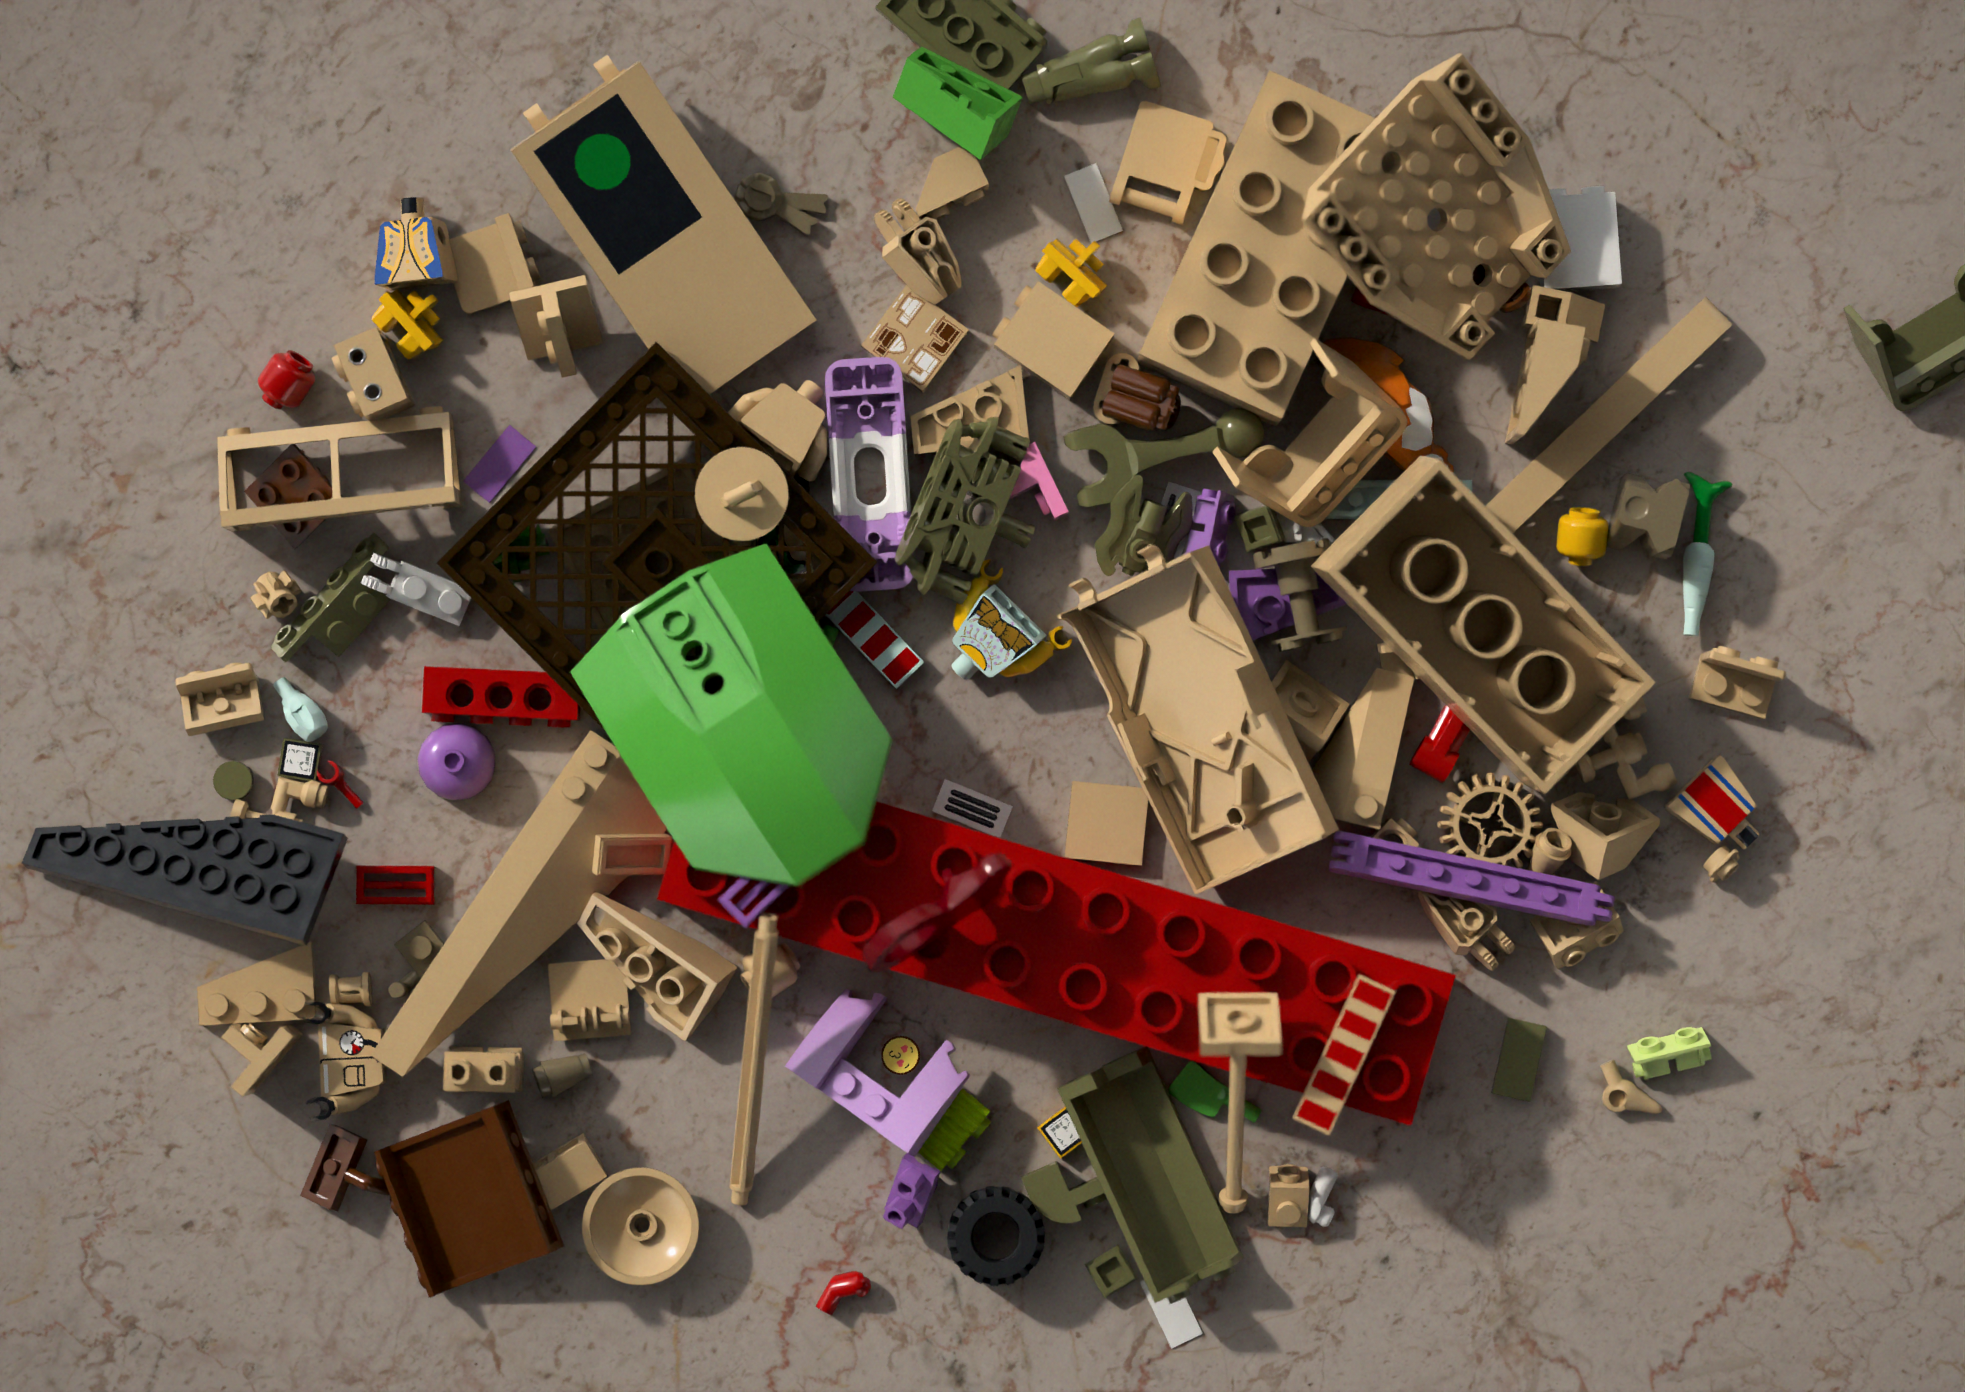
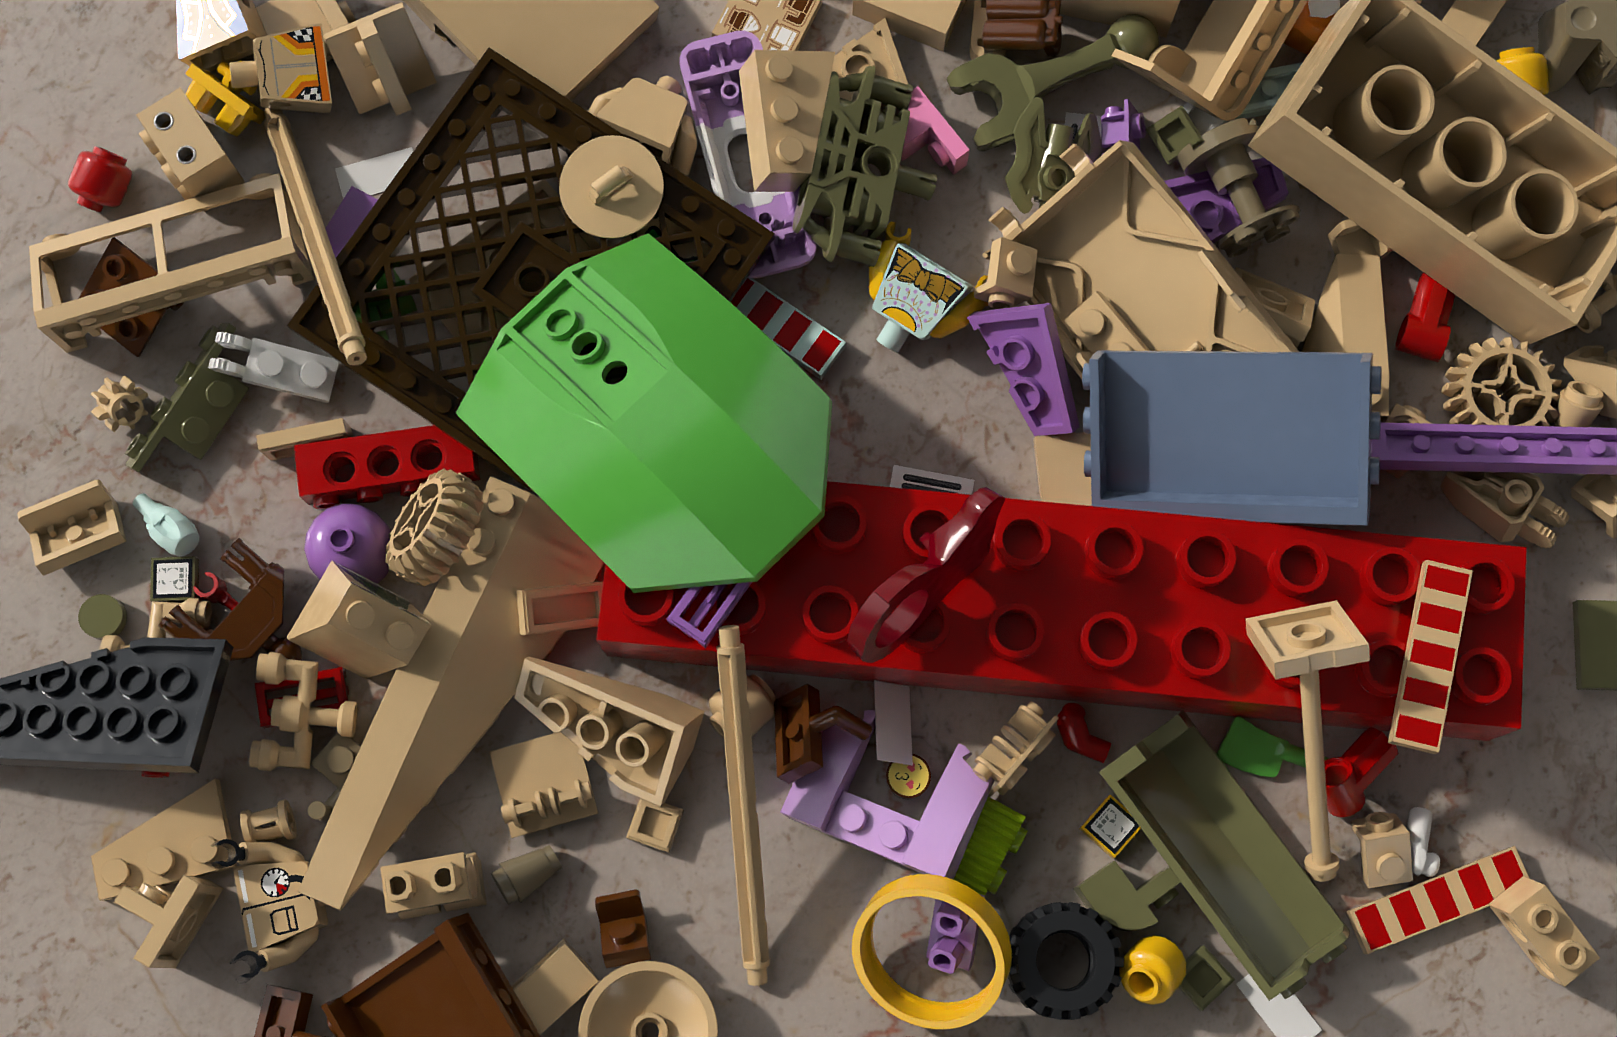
camera: 10 degrees left, 10 degrees down
(364, 812) = (256, 616): none -> reddish brown connector
(390, 902) = (296, 714): none -> tan piece
(434, 658) = (281, 443): none -> tan tile
(459, 837) = (358, 624): none -> tan slope
(471, 315) = (288, 70): none -> tan torso
(473, 480) = (315, 237): none -> tan piece
(534, 766) = (434, 527): none -> tan gear
(536, 417) = (372, 174): none -> white sticker
(635, 1137) = (623, 928): none -> reddish brown bracket
(677, 1055) = (655, 825): none -> tan tile
(814, 1003) = (800, 728): none -> reddish brown plate
(858, 1244) = (900, 1001): none -> yellow piece
(896, 1008) = (893, 723): none -> white sticker
(908, 453) = (784, 114): none -> tan wedge
(1012, 1049) = (1009, 771): none -> tan hinge
(1051, 1049) = (1076, 734): none -> red arm
(1069, 1257) = (1153, 970): none -> yellow head
(1077, 637) = (1009, 275): none -> tan bracket
(1082, 717) = (1031, 356): none -> medium lavender wing
(1158, 720) = (1102, 327): none -> tan hinge
(1227, 830) = (1234, 434): none -> sand blue panel
(1268, 1132) = (1355, 771): none -> red piece
(1326, 1247) = (1435, 900): none -> tile
(1401, 1290) = (1544, 931): none -> tan brick

